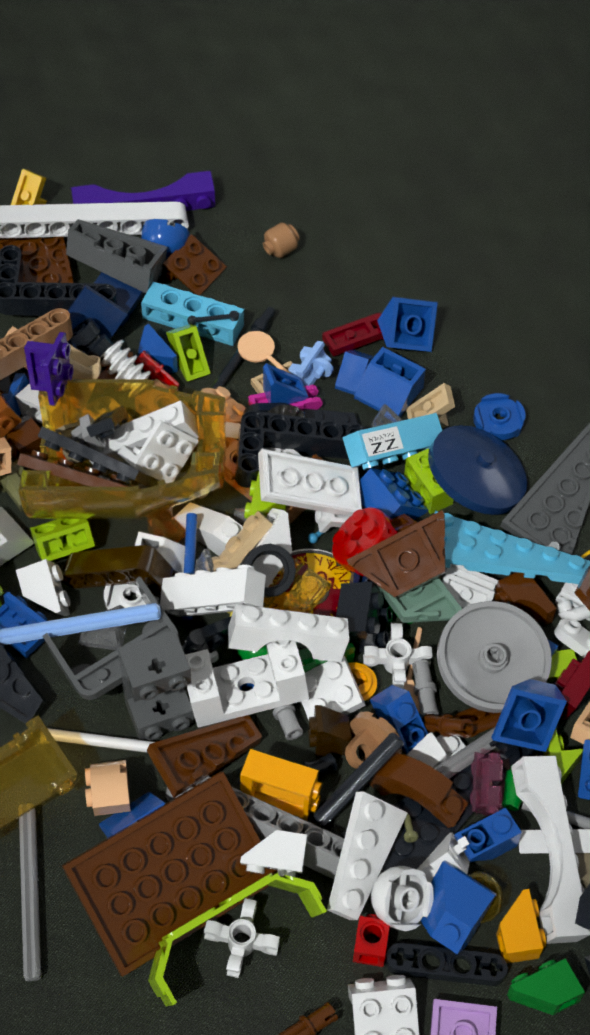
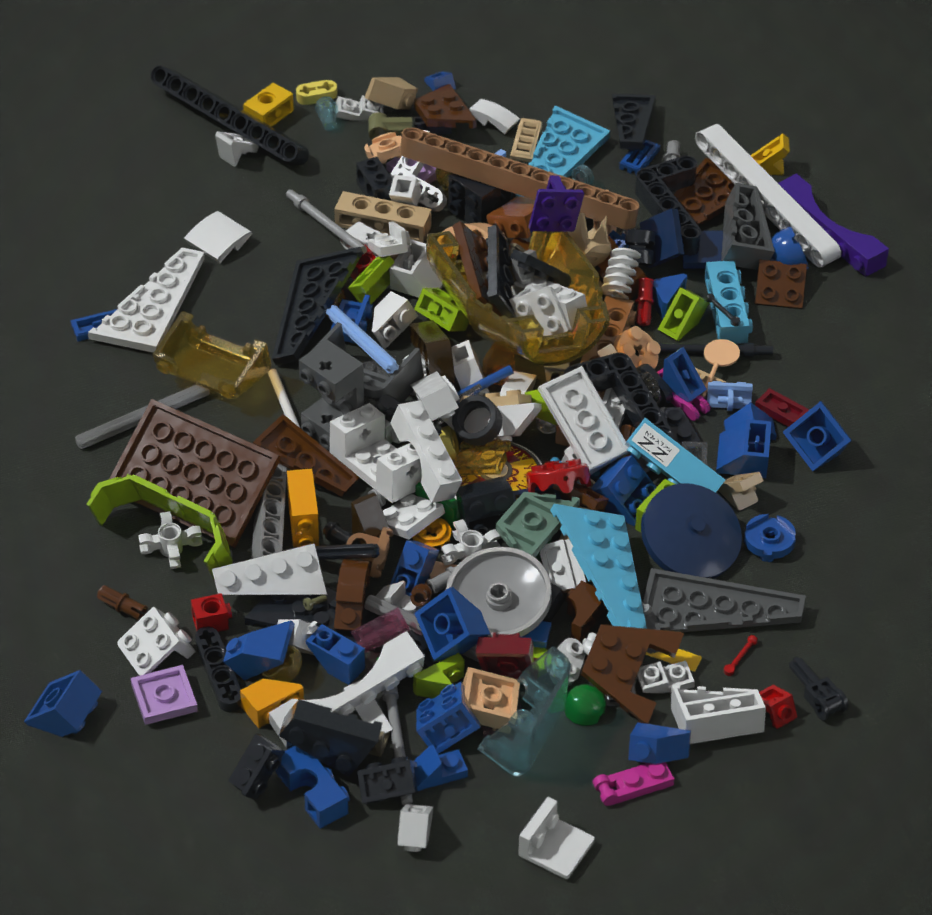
camera: 65 degrees right, 10 degrees down
(108, 787) = (241, 415): light nougat brick -> none
(278, 851) = (240, 521): white slope -> none
(280, 240) = (852, 325): medium nougat head -> none
(402, 897) = (246, 608): white cylinder -> none
(406, 558) = (544, 494): reddish brown wing -> none
(549, 989) = (231, 732): green slope -> none

